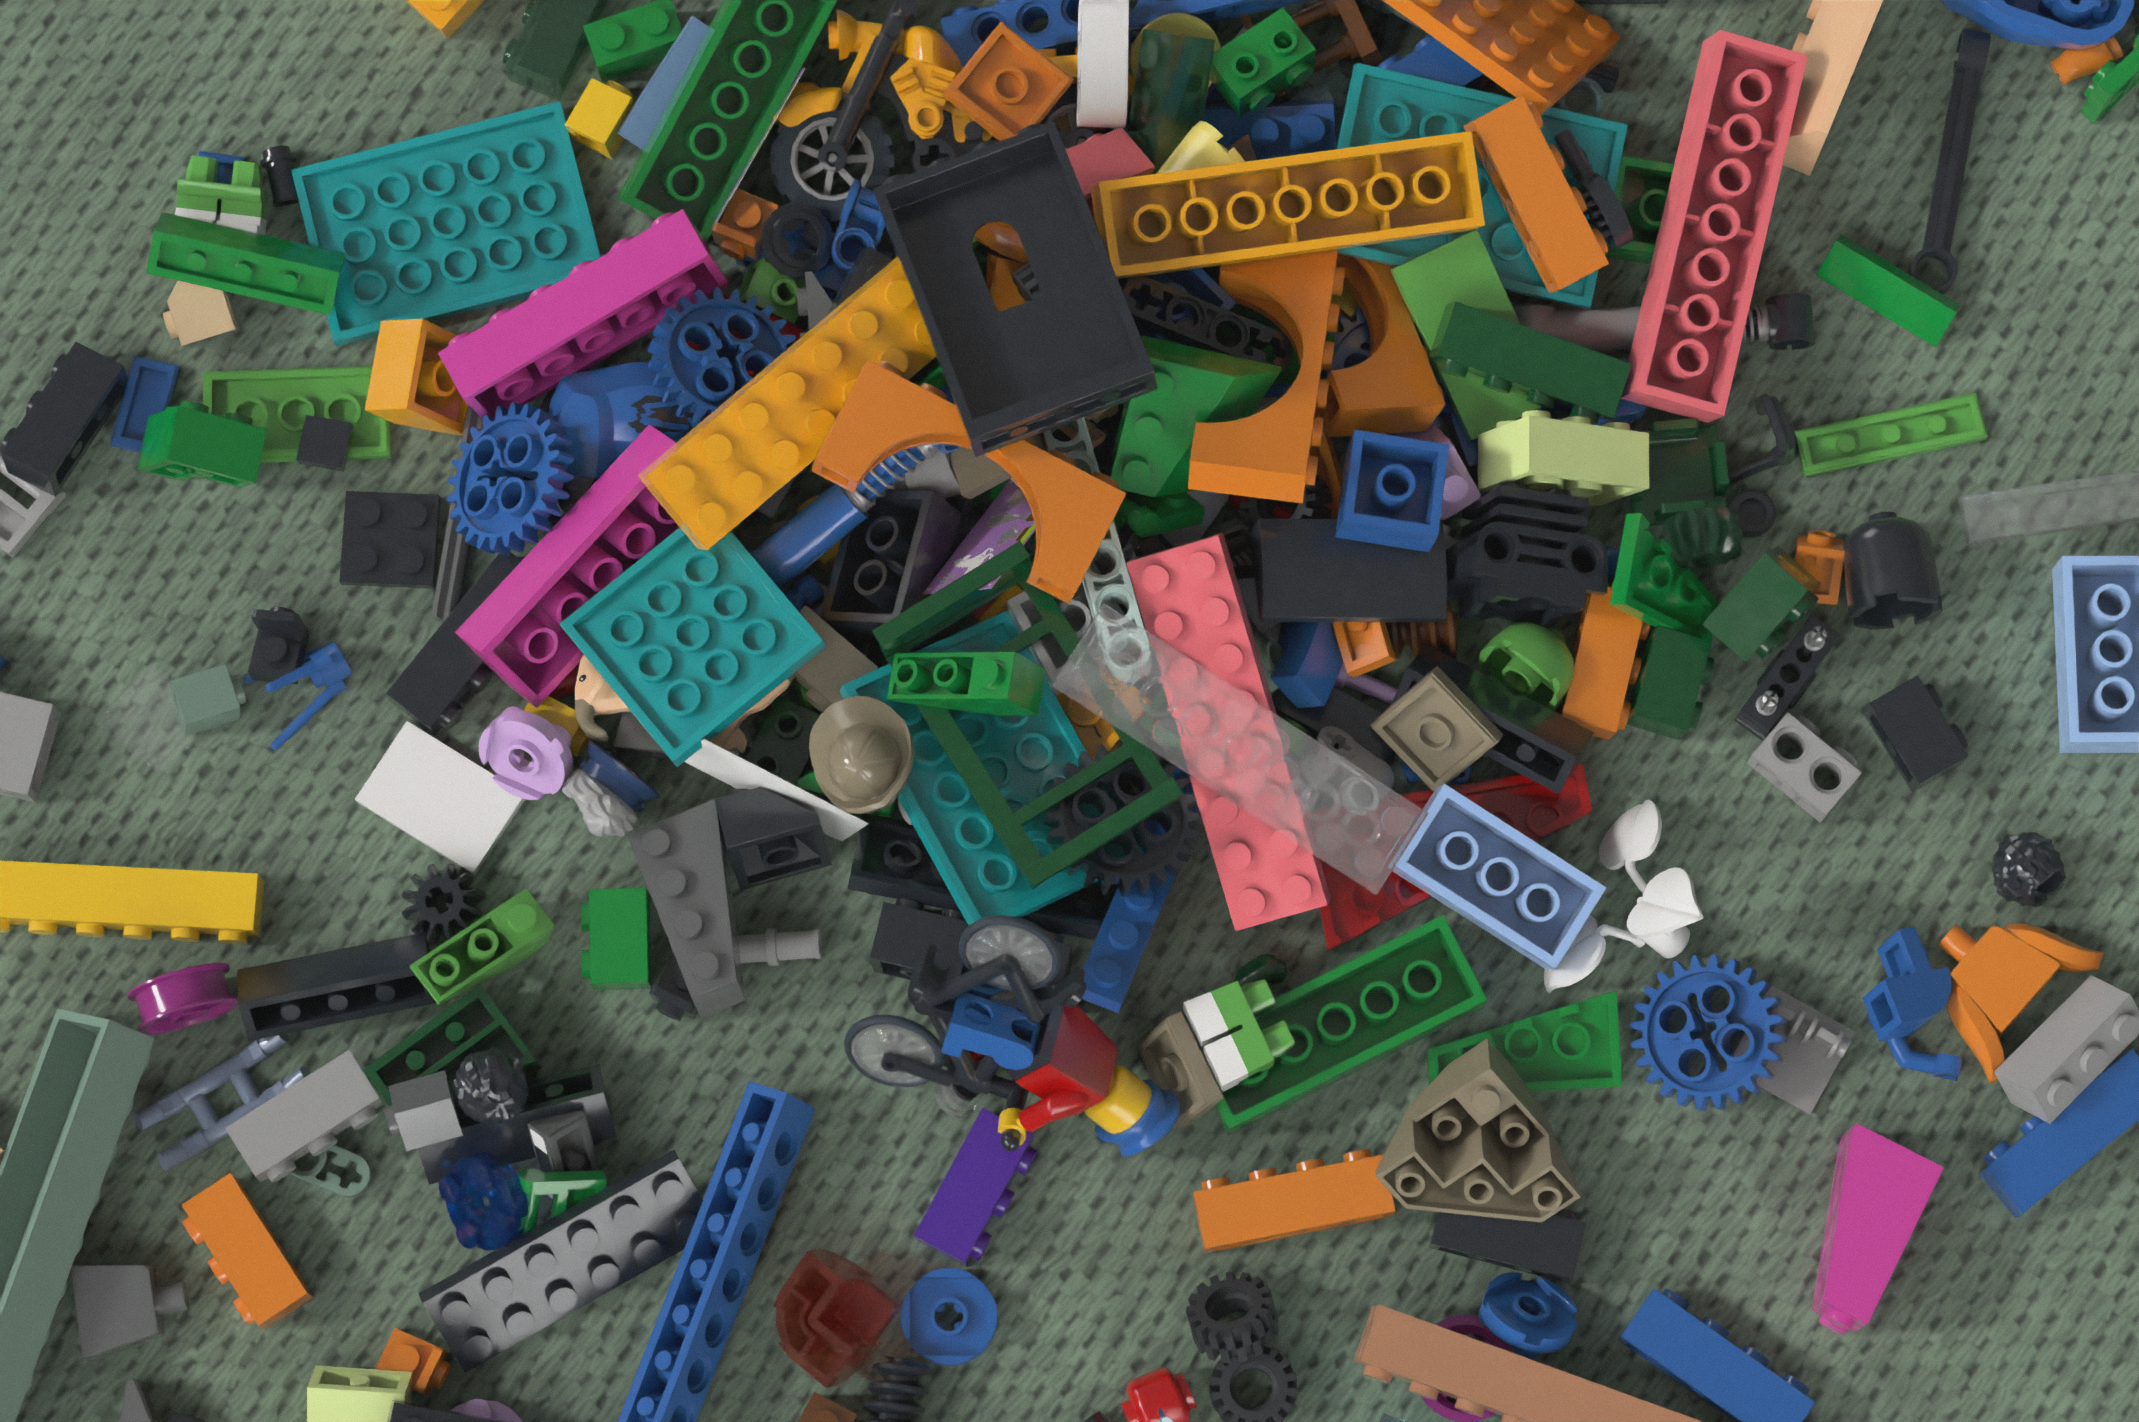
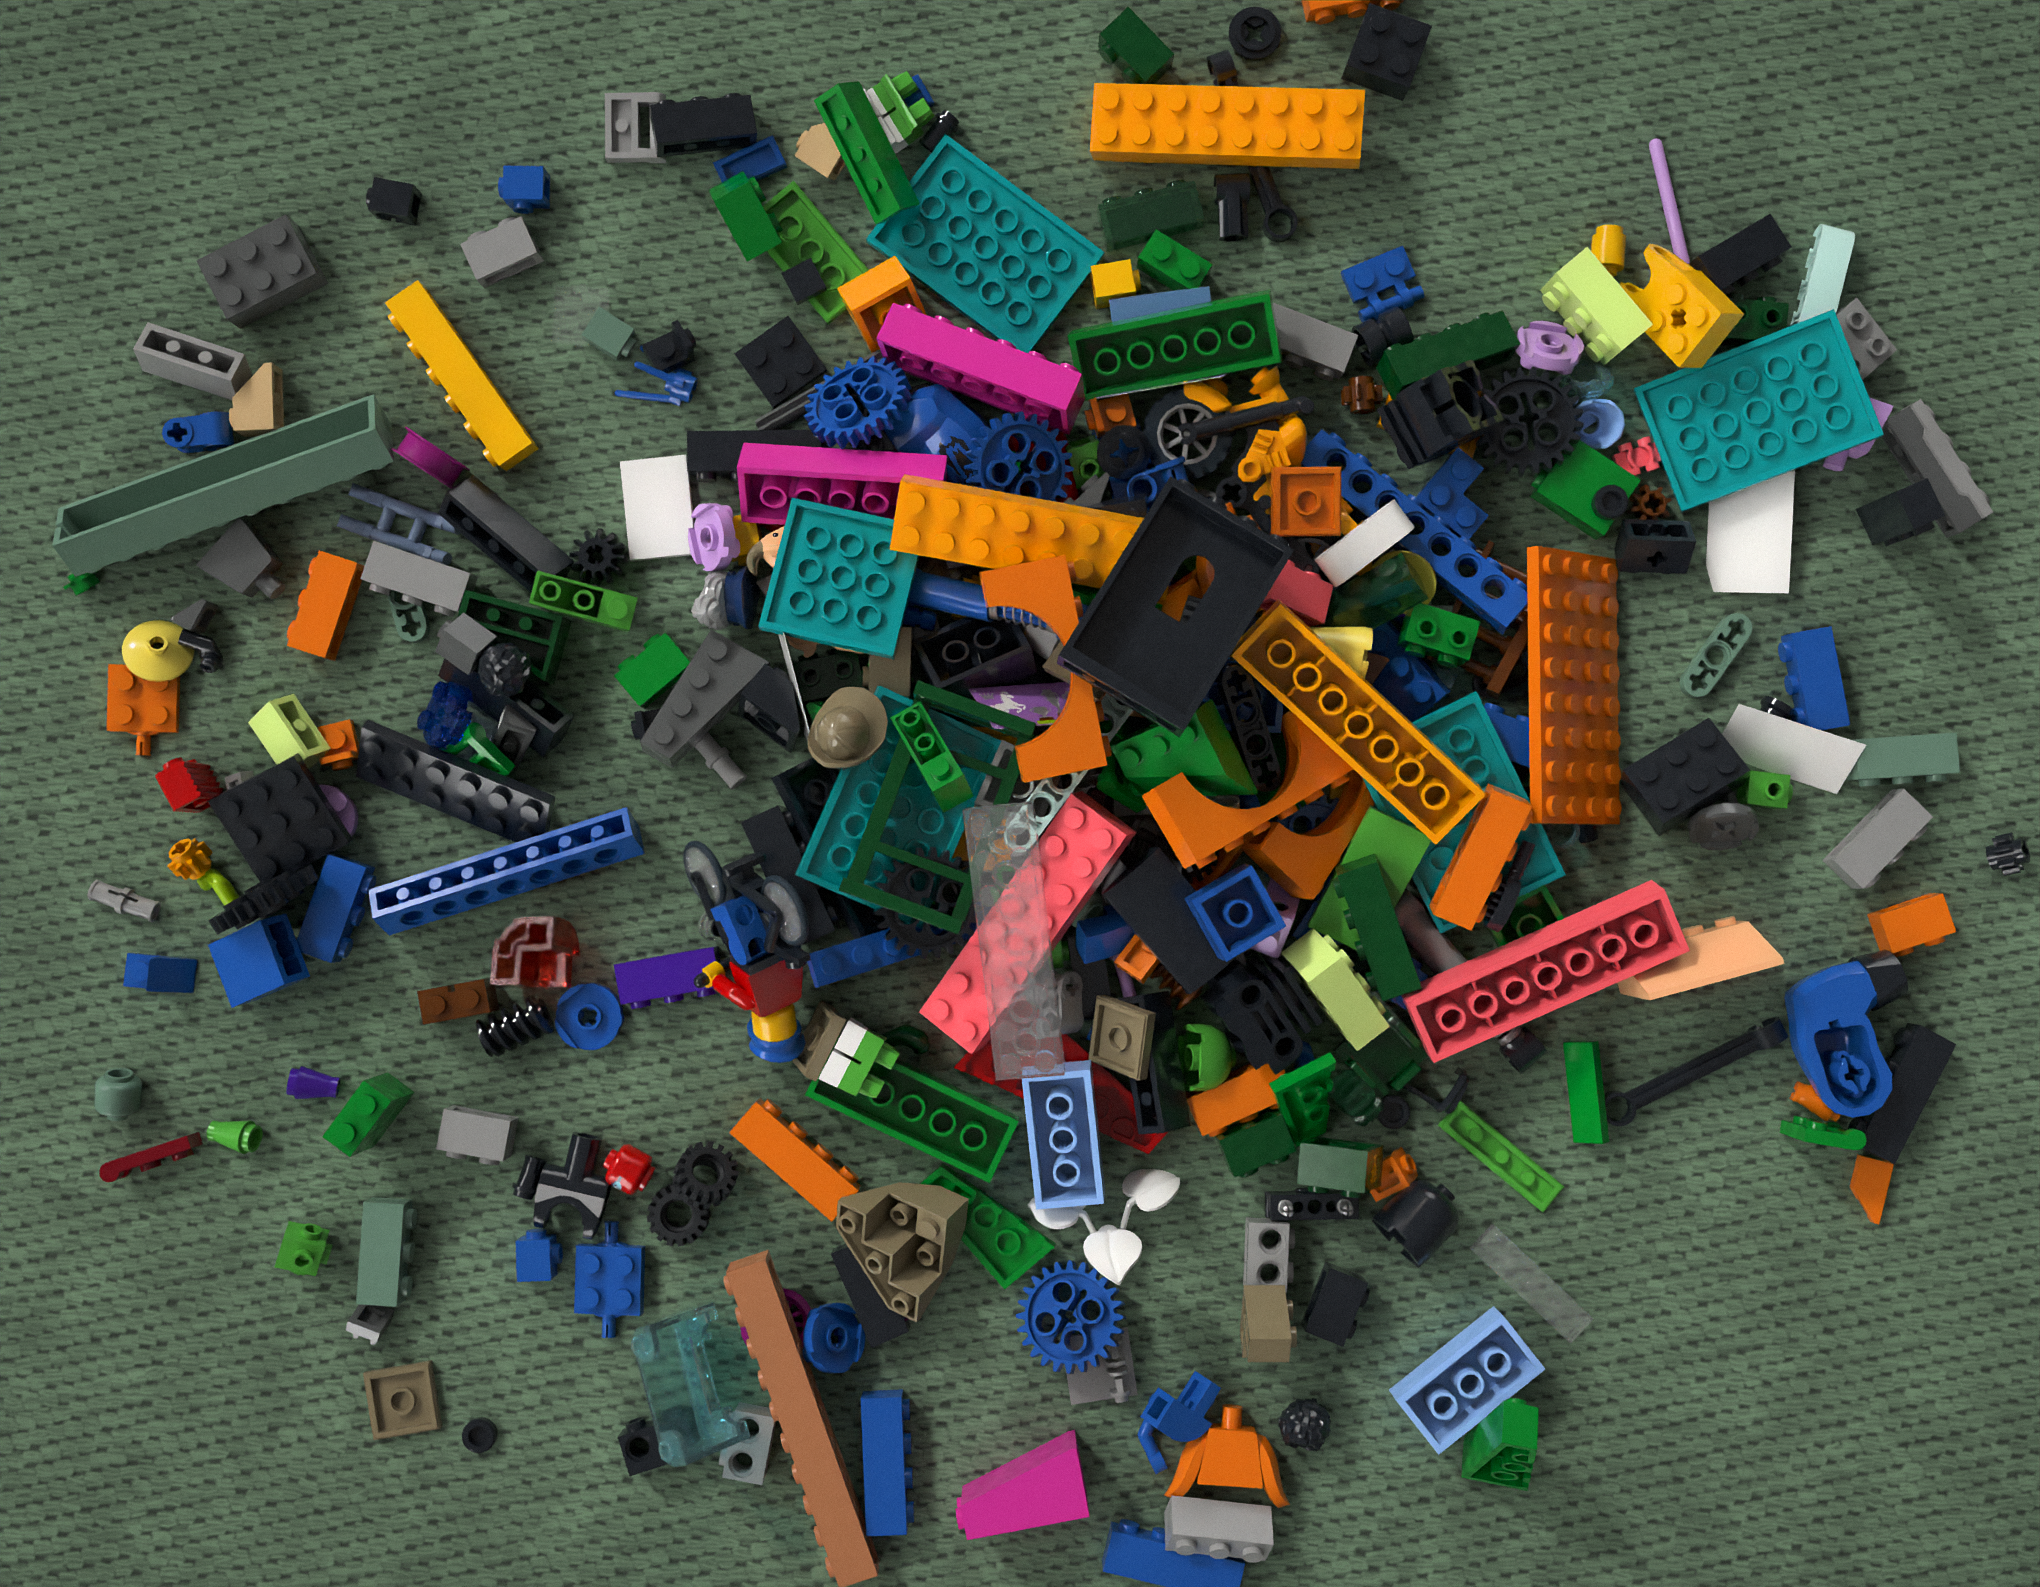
camera: 50 degrees right, 10 degrees up
(1879, 819) = (1266, 1324): none -> dark tan brick

